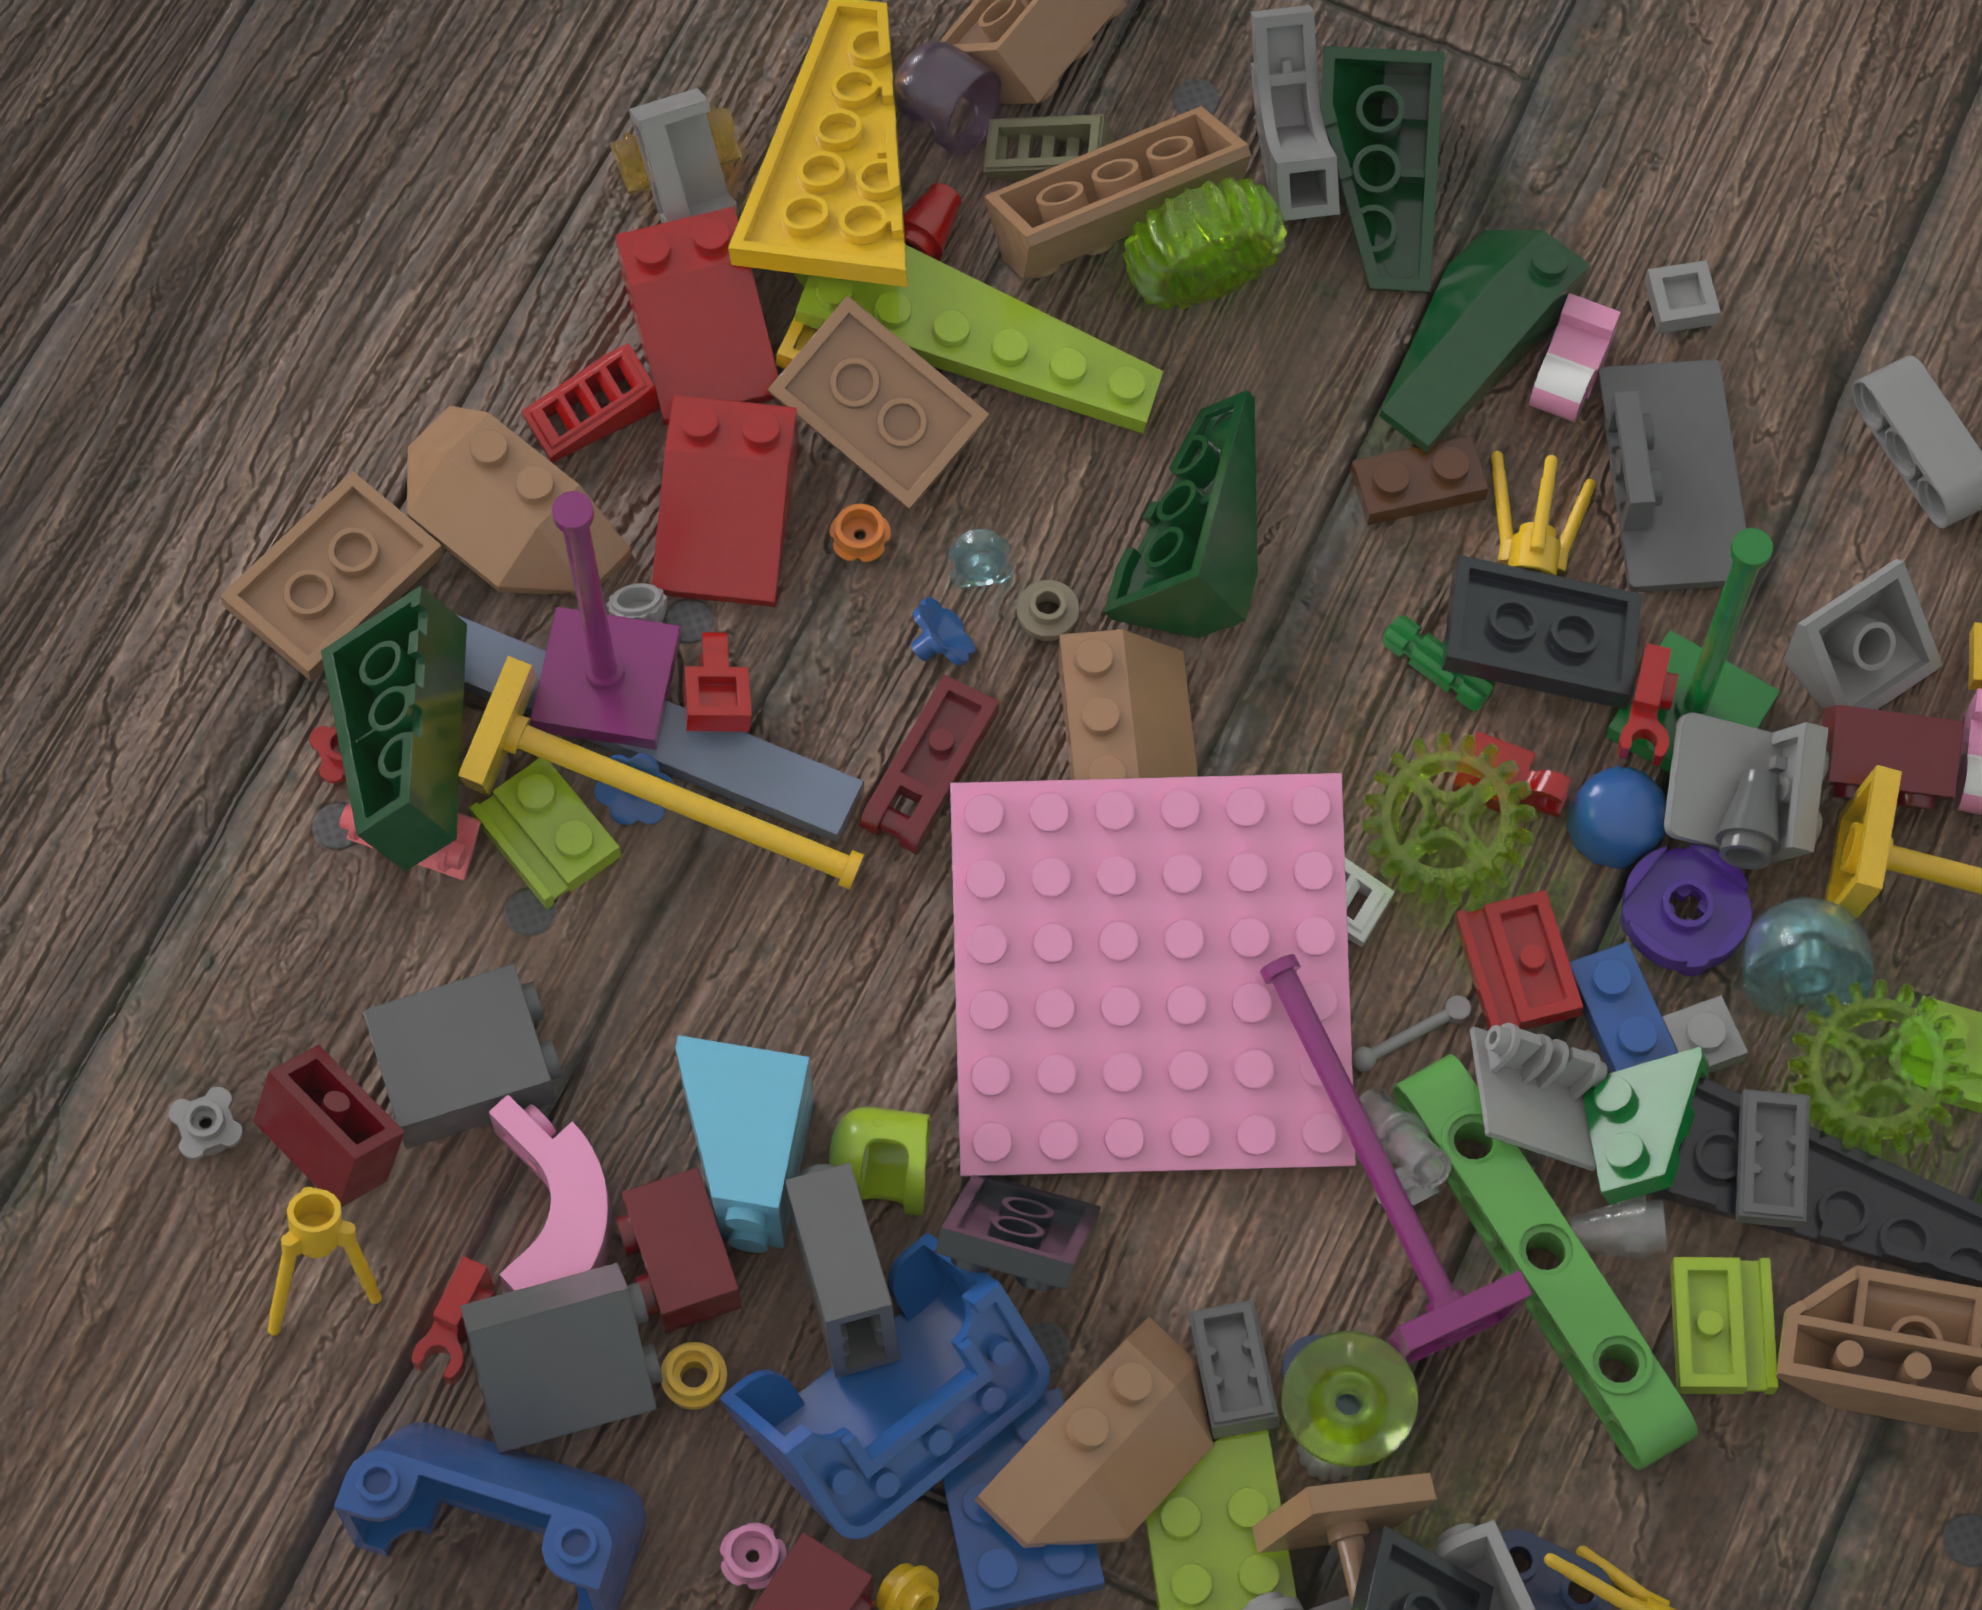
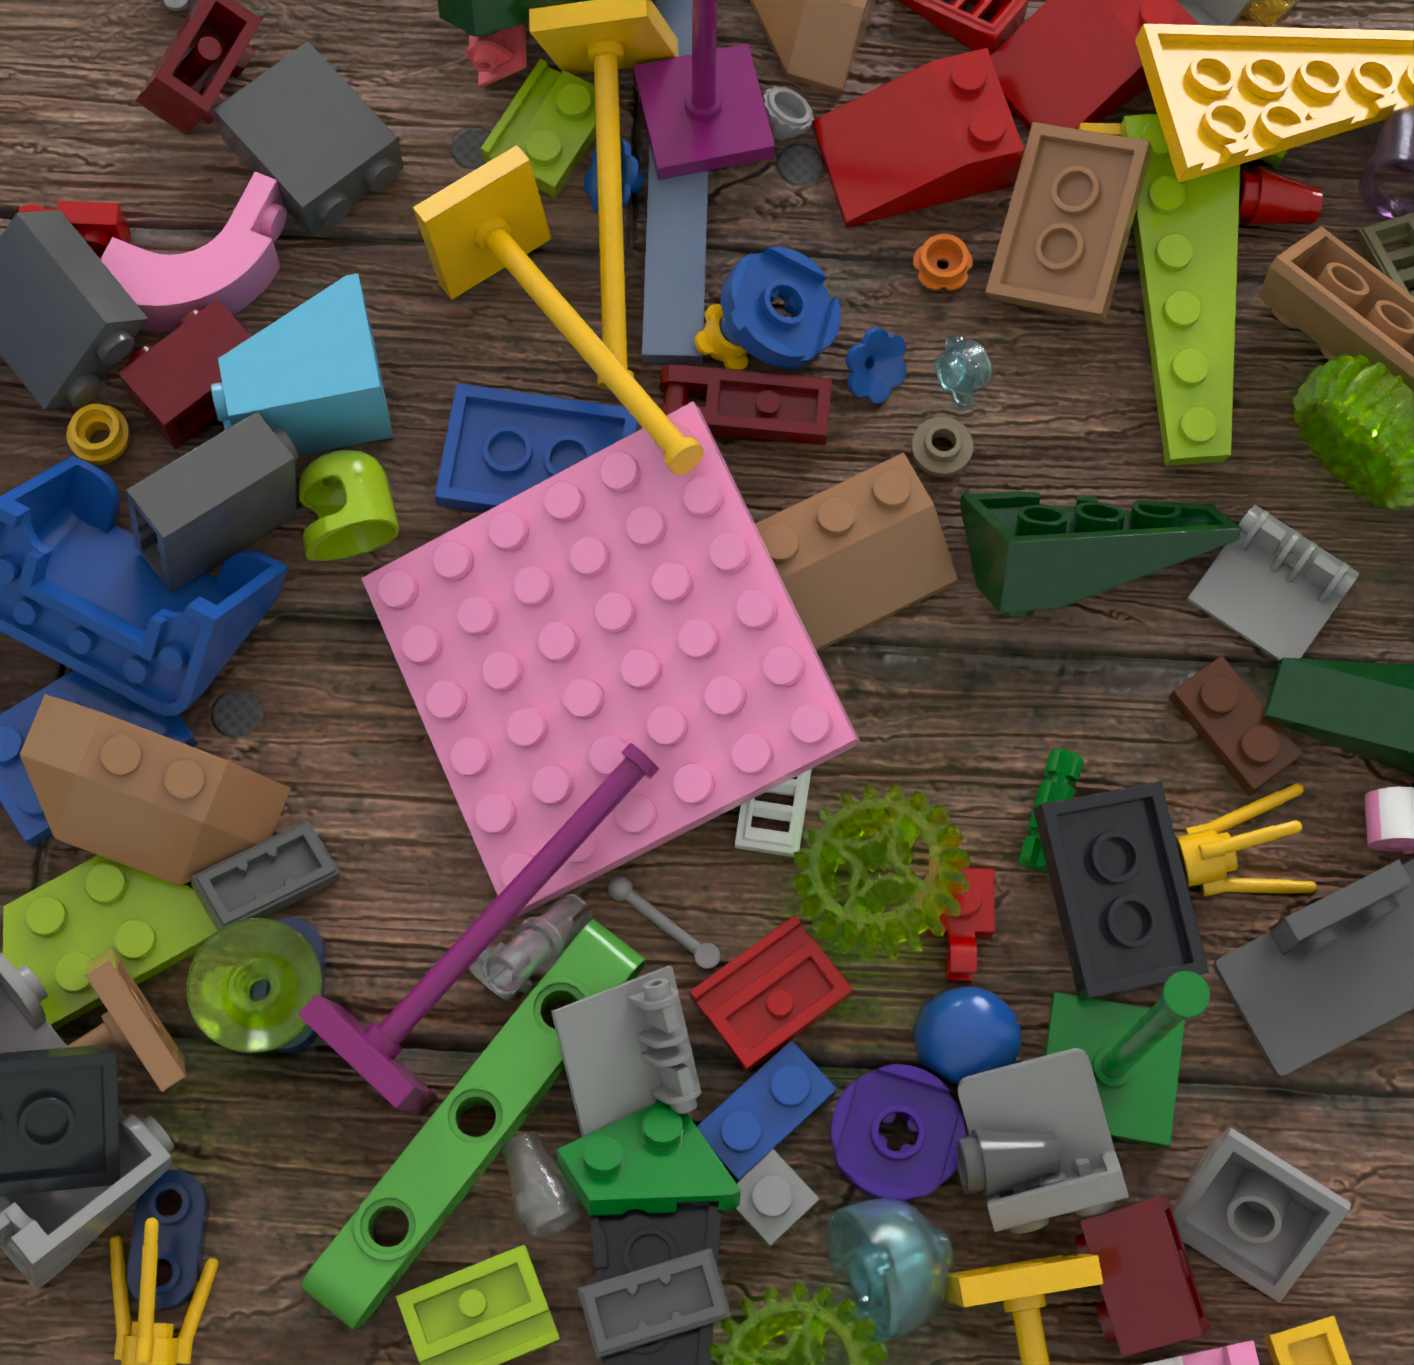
camera: 65 degrees right, 5 degrees up
(315, 1232) = (87, 74): yellow plant -> none
(652, 915) = (492, 225): none -> yellow tile
(714, 692) = (727, 203): red plate -> none
(821, 696) = (756, 325): none -> blue plate
(853, 750) = (712, 343): none -> yellow plate
(892, 975) = (514, 440): none -> blue plate
(1018, 1232) = (300, 632): black plate -> none
(1304, 391) = (1273, 586): none -> light grey hinge
(1652, 692) = (1099, 1013): red plate -> none

